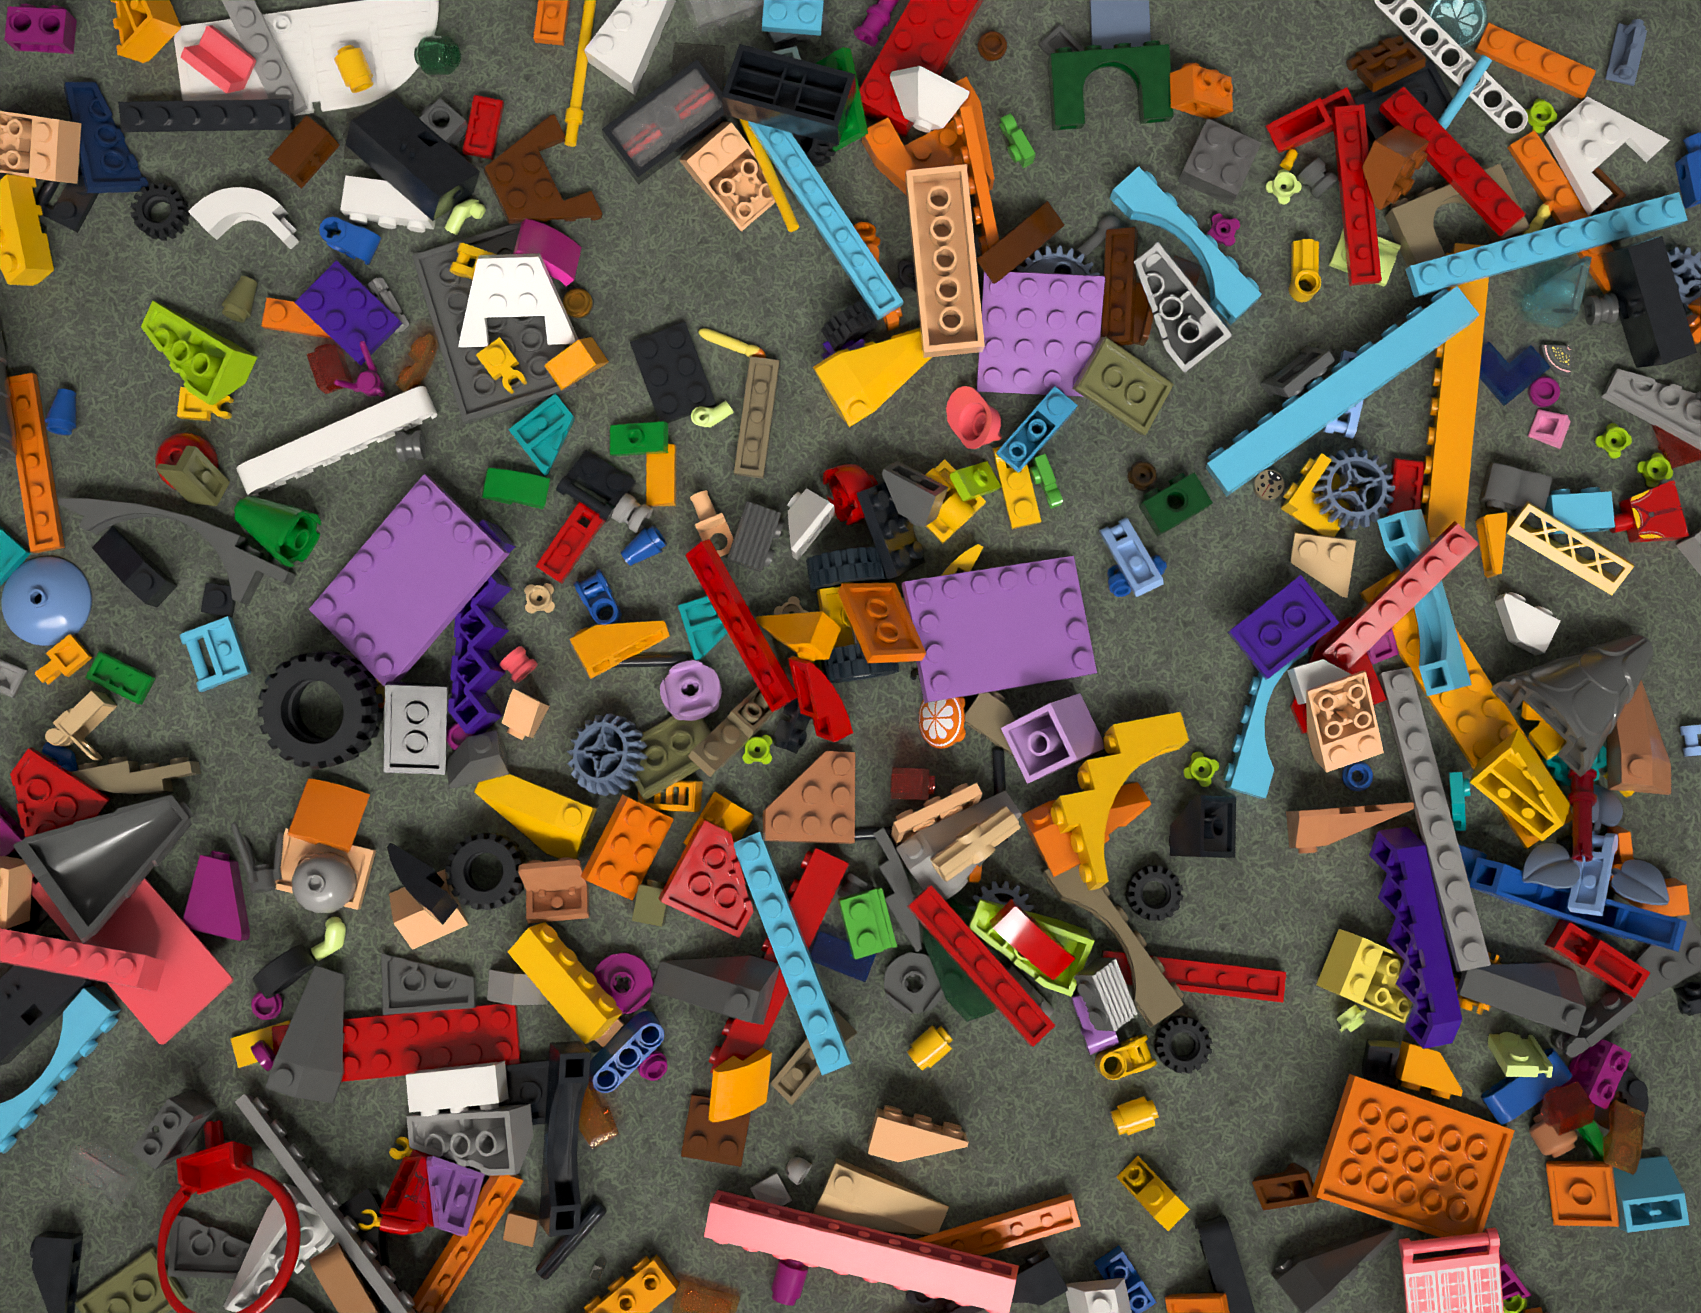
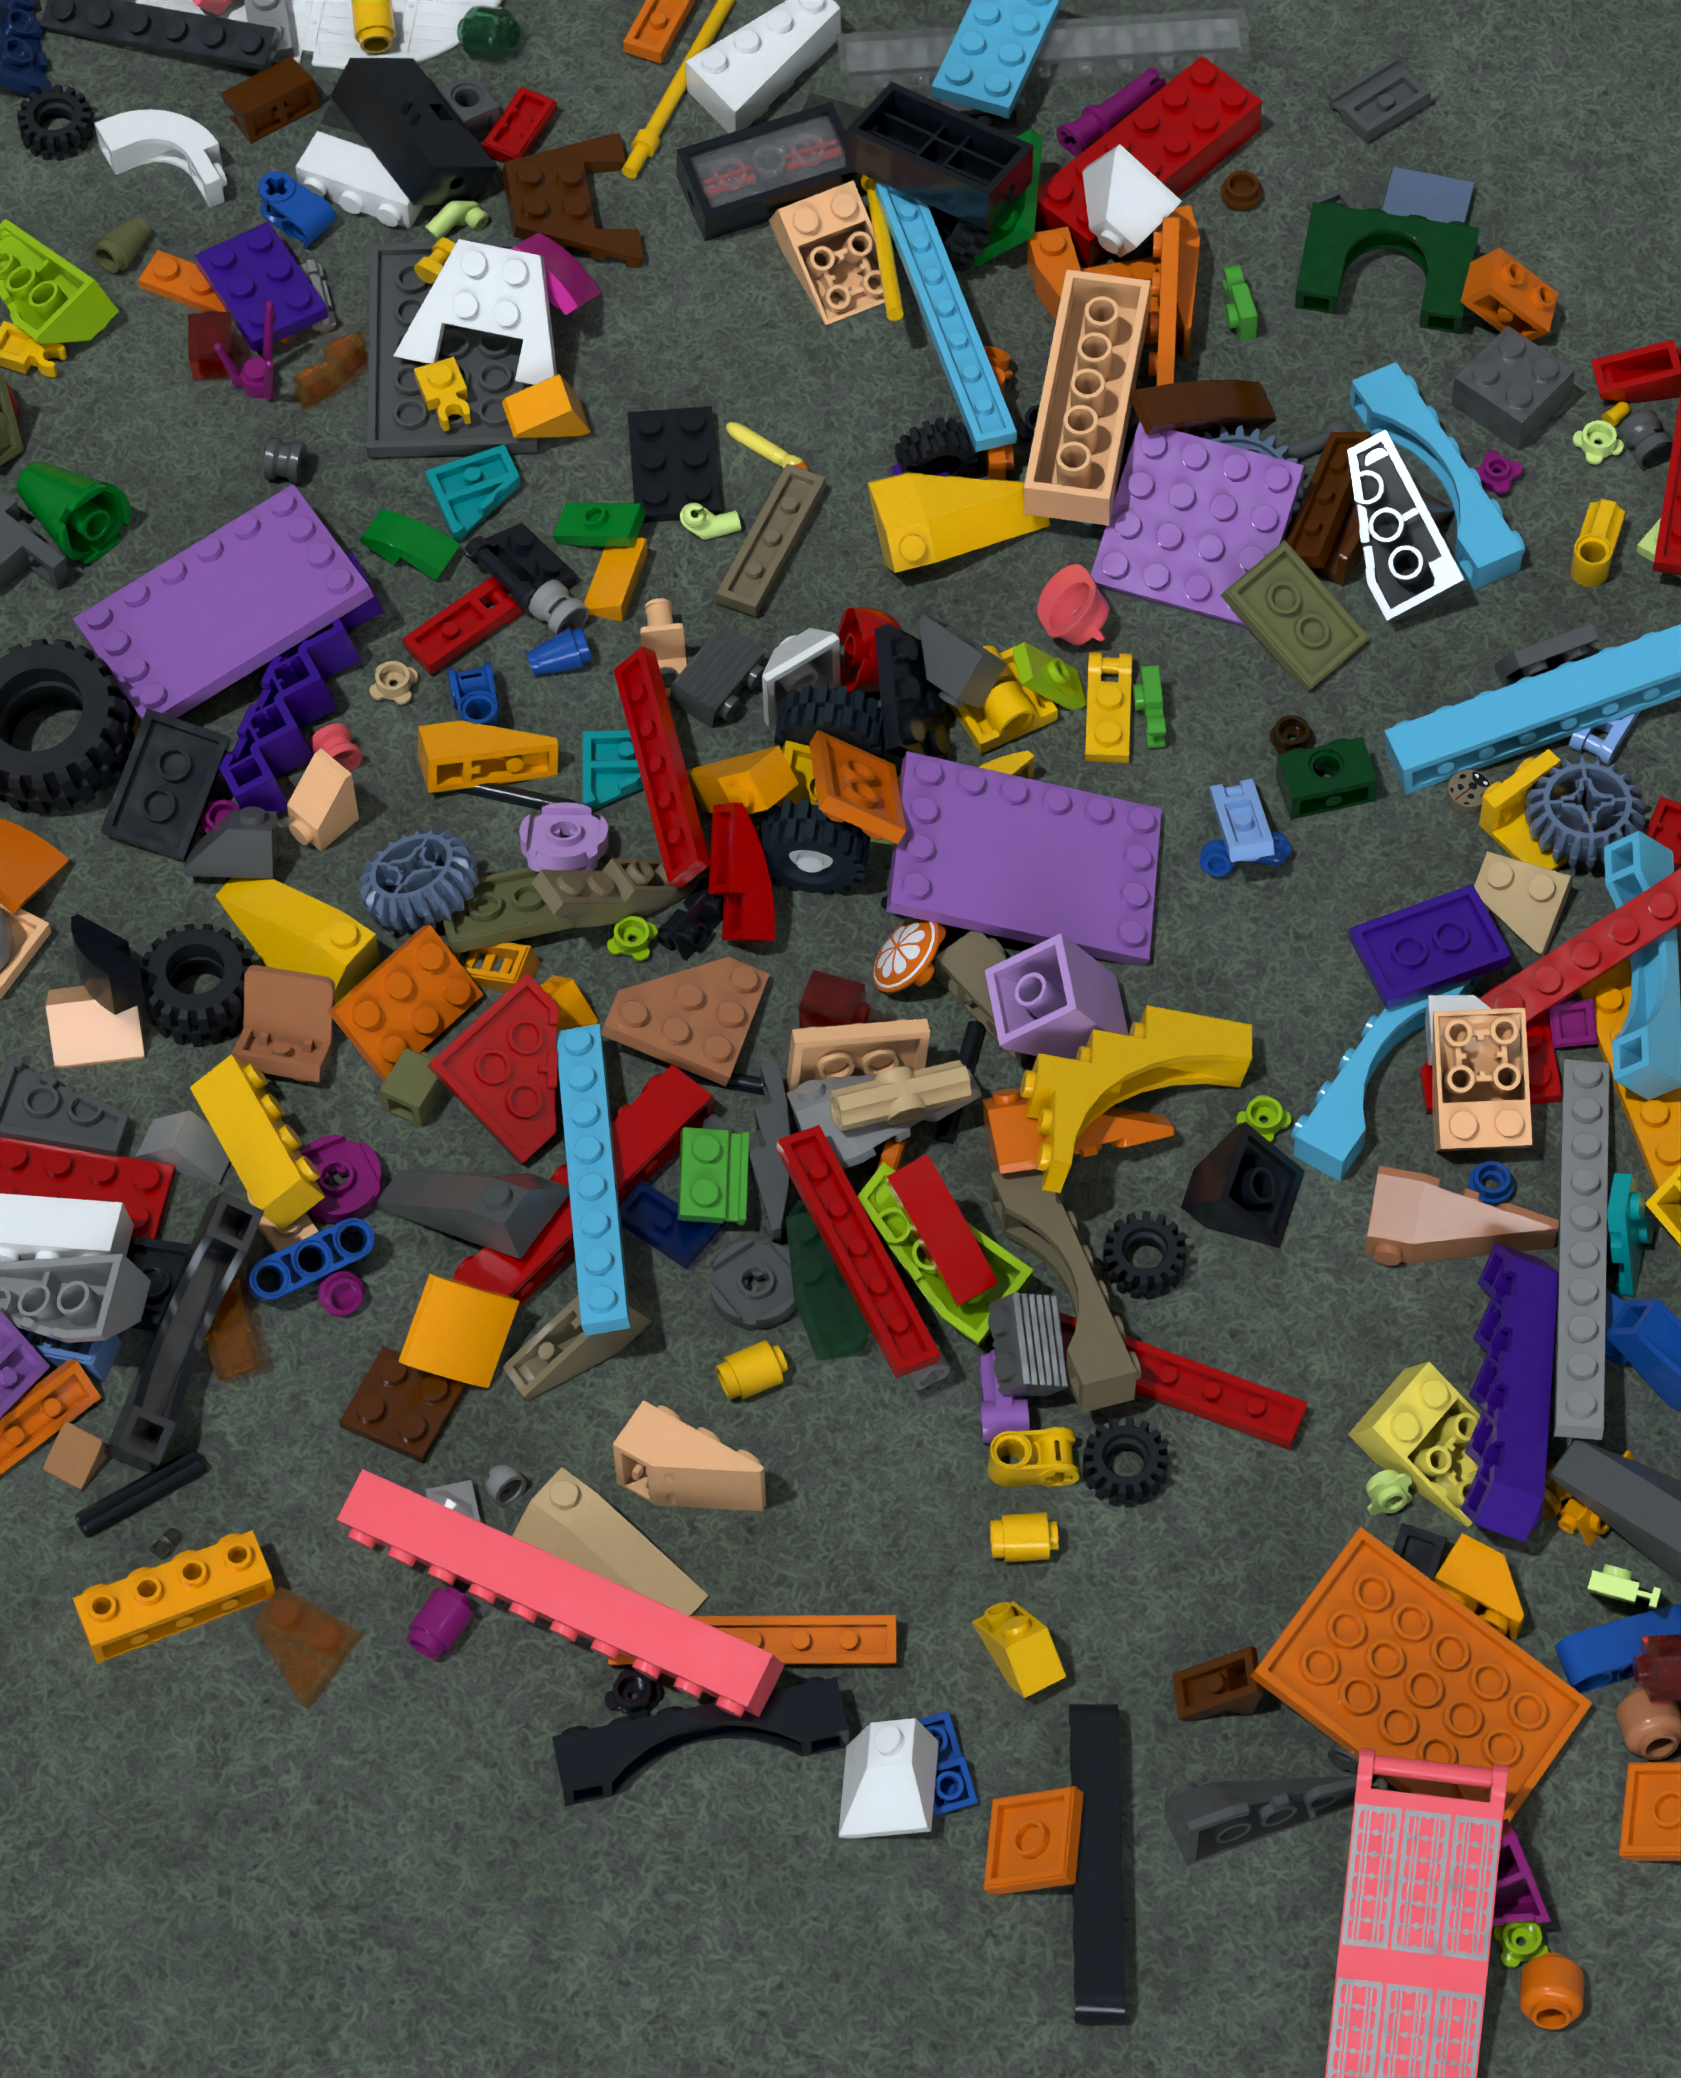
camera: 15 degrees right, 25 degrees down
(336, 440) = (187, 430): white beam -> none
(577, 303) = (573, 352): pearl gold plate -> none
(1037, 429) = (1160, 636): dark azure slope -> none

